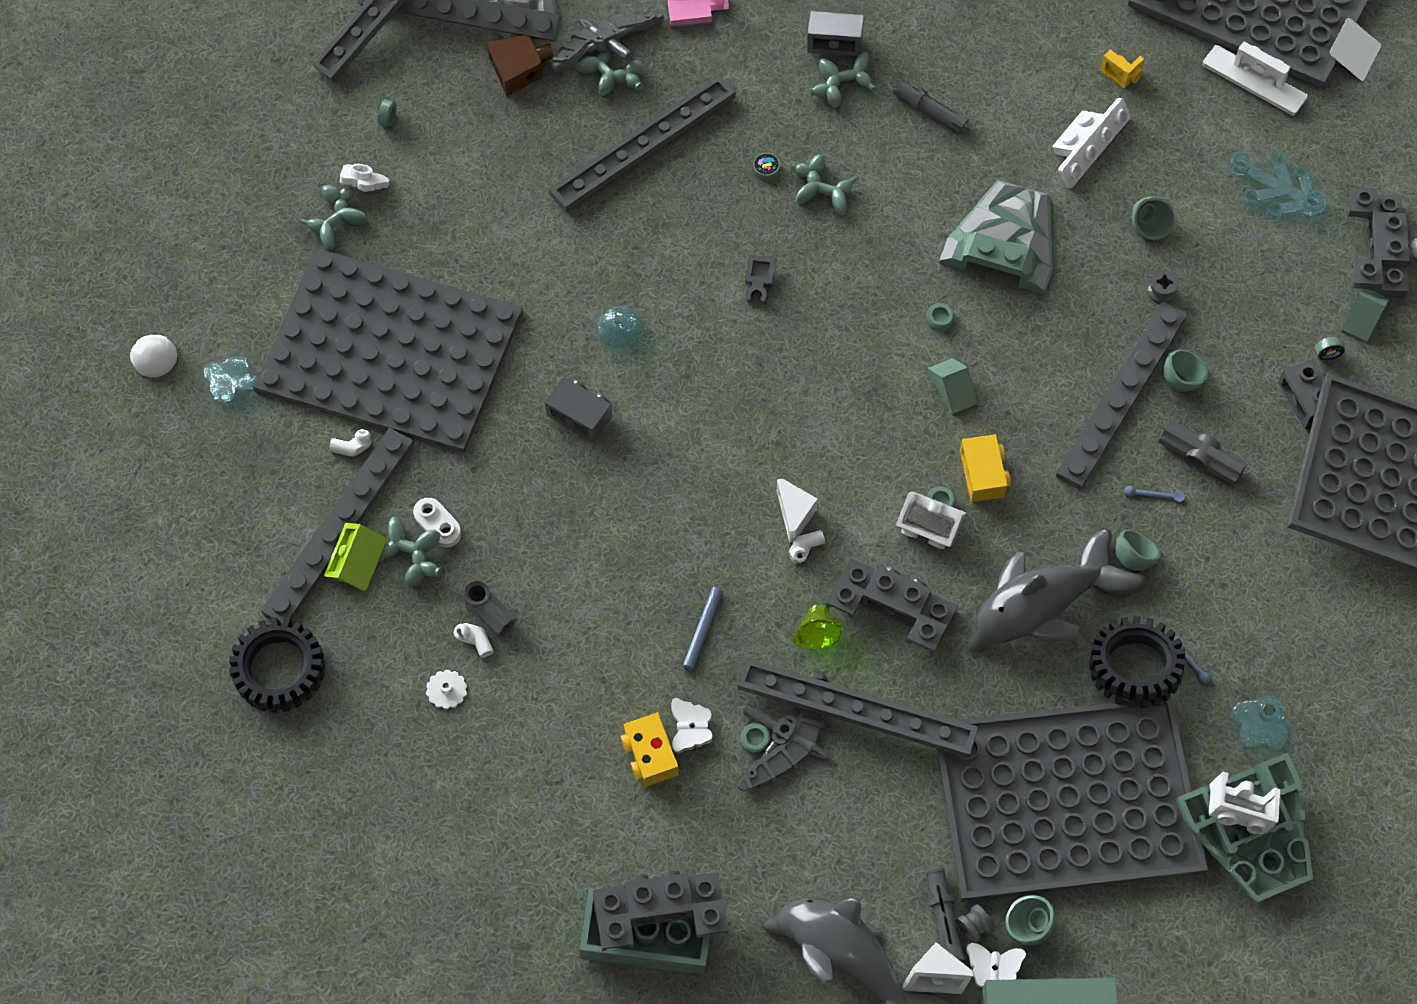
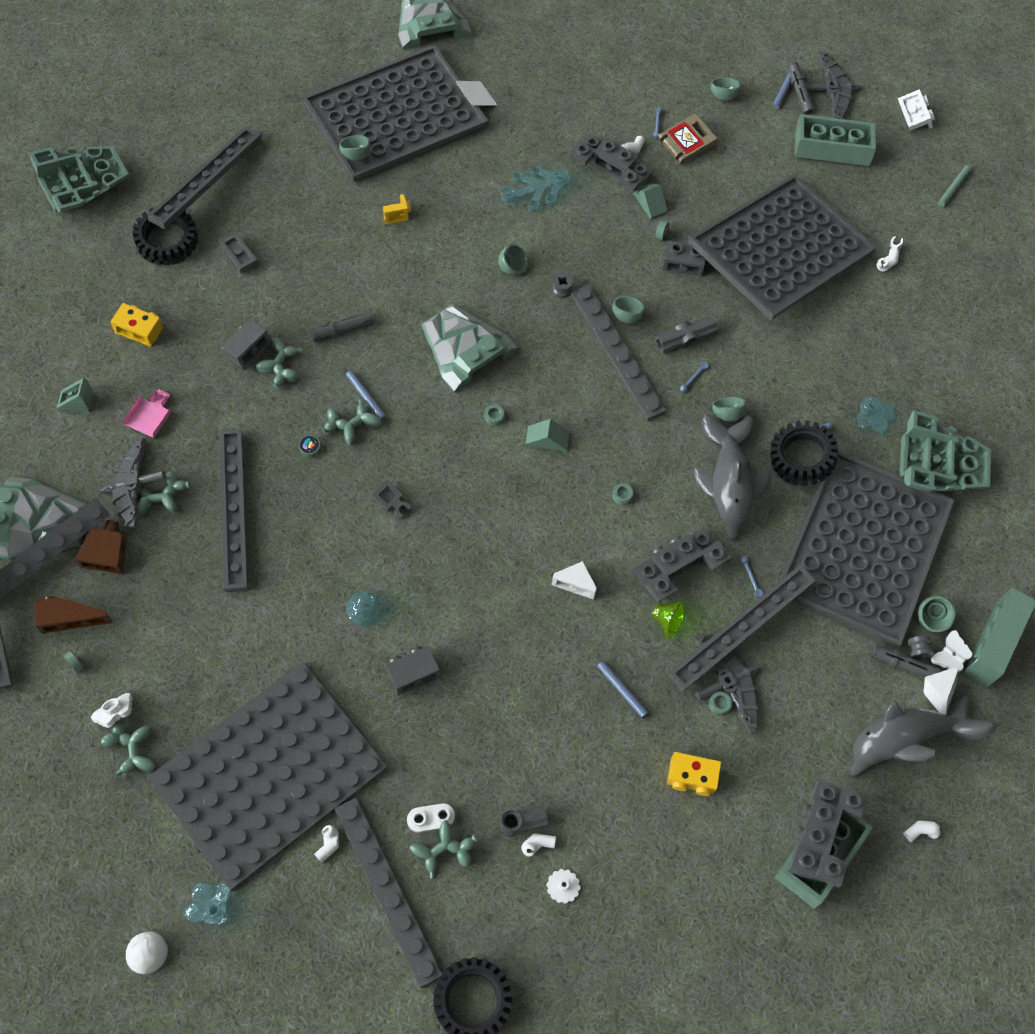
camera: 65 degrees left, 0 degrees up
(355, 556) = (421, 892): lime panel -> none
(423, 69) = (61, 614): none -> reddish brown slope
(687, 715) = (681, 734): white animal -> none
(802, 545) = (602, 592): white arm -> none
(867, 181) = (366, 395): none -> sand blue bar
(930, 519) = (637, 506): white window -> none
(951, 675) = (758, 592): none -> sand blue hinge
(984, 468) = (619, 455): yellow brick -> none
(1087, 139) = (429, 259): white bracket -> none
(1242, 806) = (936, 452): white window -> none
(1257, 74) = (456, 148): white bracket -> none

